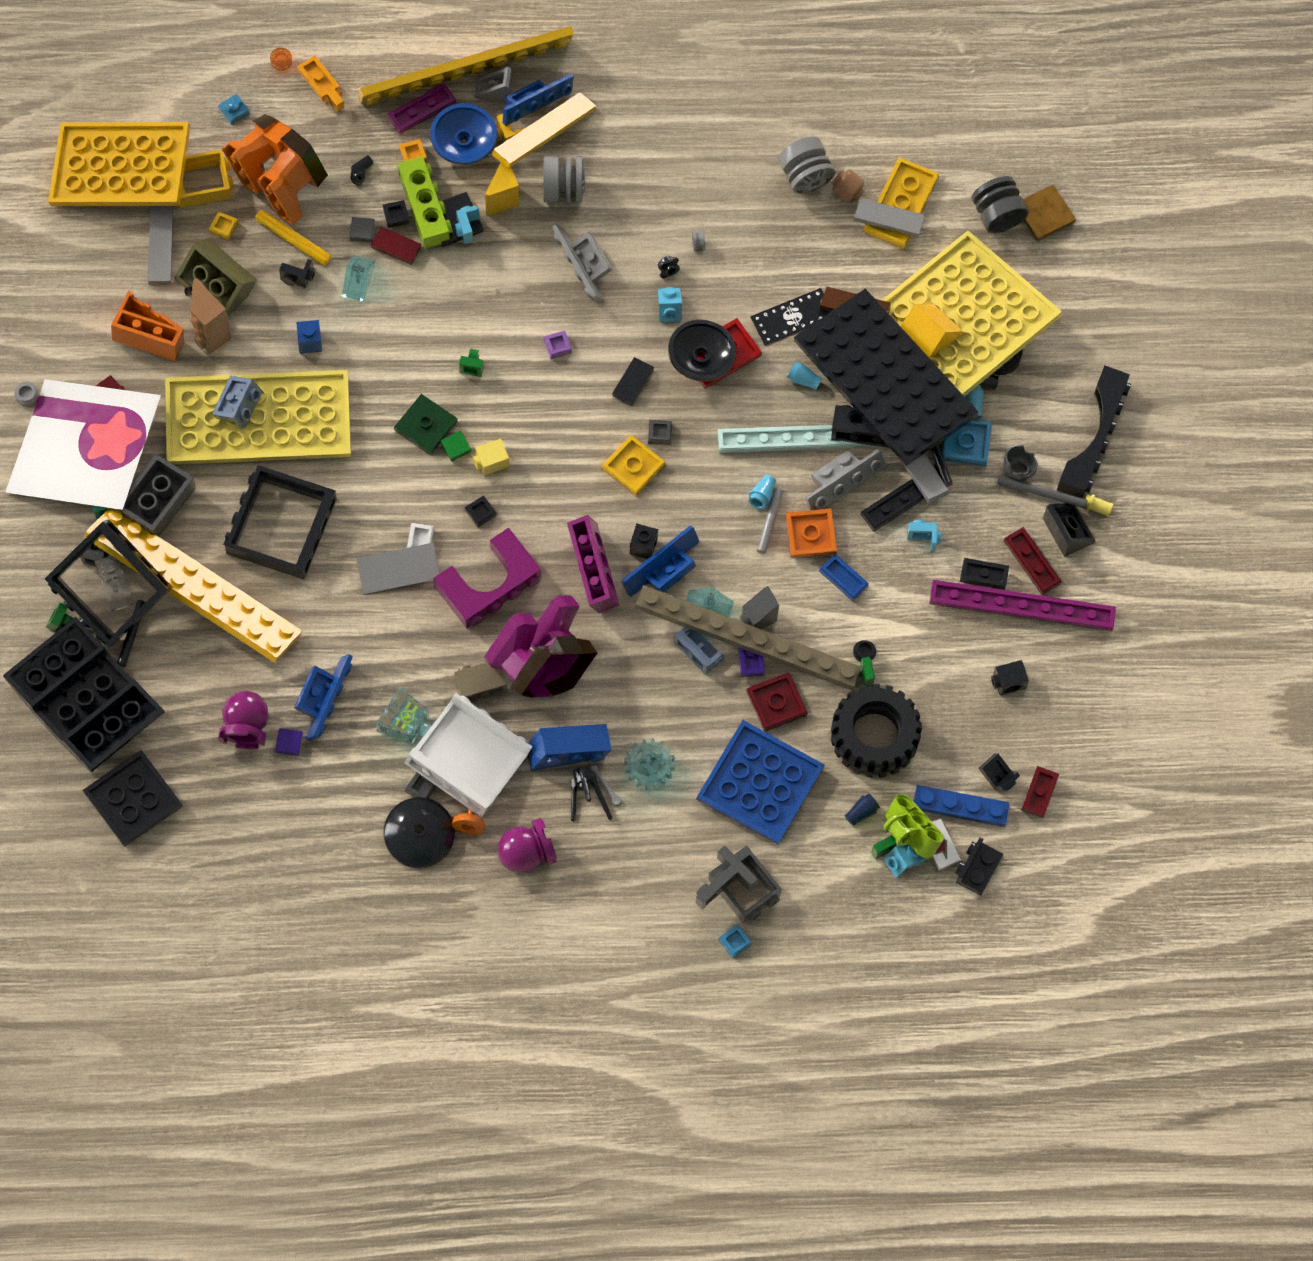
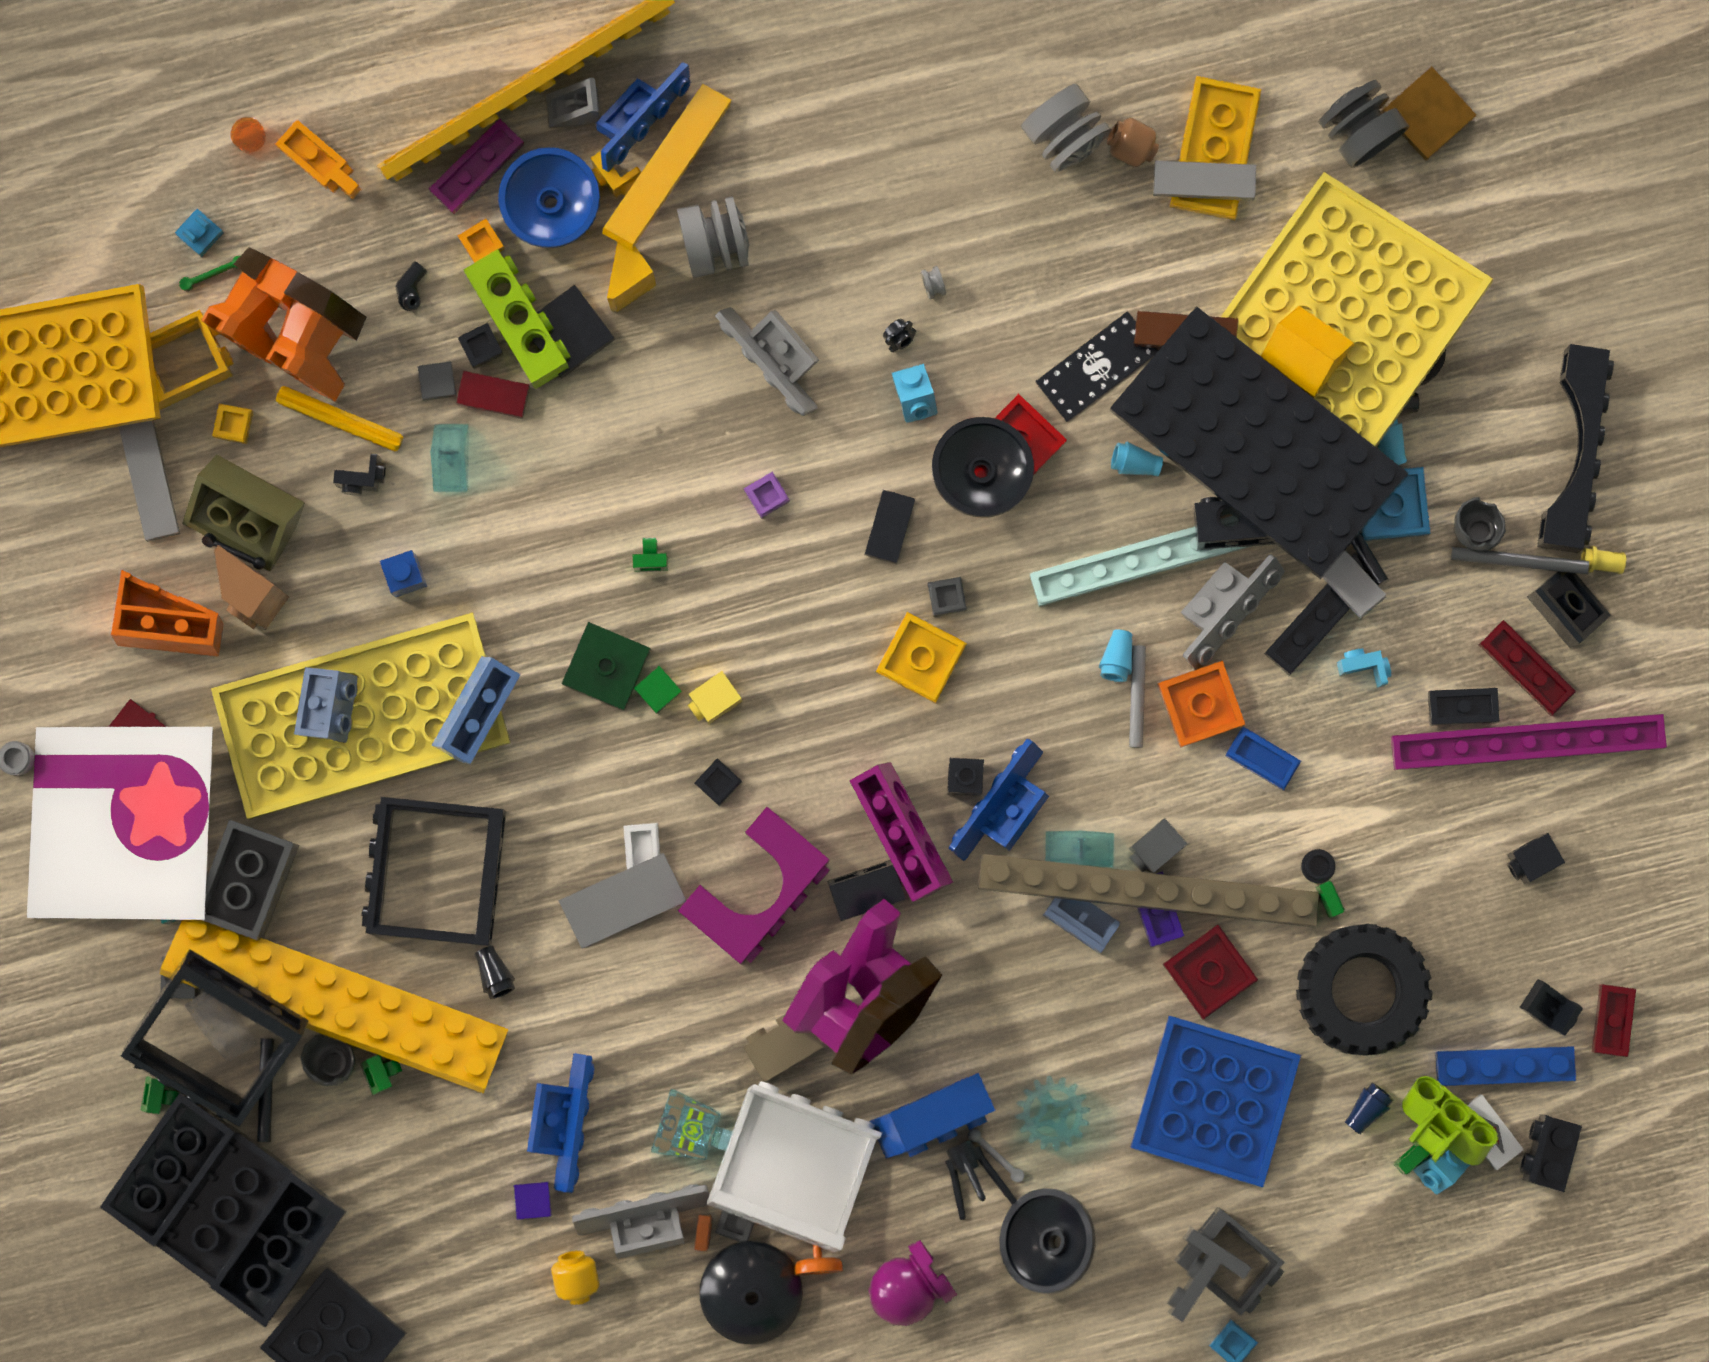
camera: 10 degrees left, 15 degrees up
(178, 620) = (327, 1060): none -> dark grey hair
(209, 638) = (378, 1074): none -> green tile
(217, 137) = (187, 284): none -> green hinge
(244, 717) = (462, 1187): magenta tile -> none
(301, 595) = (494, 974): none -> black cone
(304, 794) = (575, 1277): none -> yellow head
(334, 423) = (476, 709): none -> medium blue brick
(359, 769) = (643, 1223): none -> light grey bracket
(397, 785) = (703, 1232): none -> dark orange tile
(463, 226) = (585, 347): medium azure bracket -> none
(548, 592) = (864, 889): none -> black hinge
(619, 834) = (1030, 1237): none -> black dish

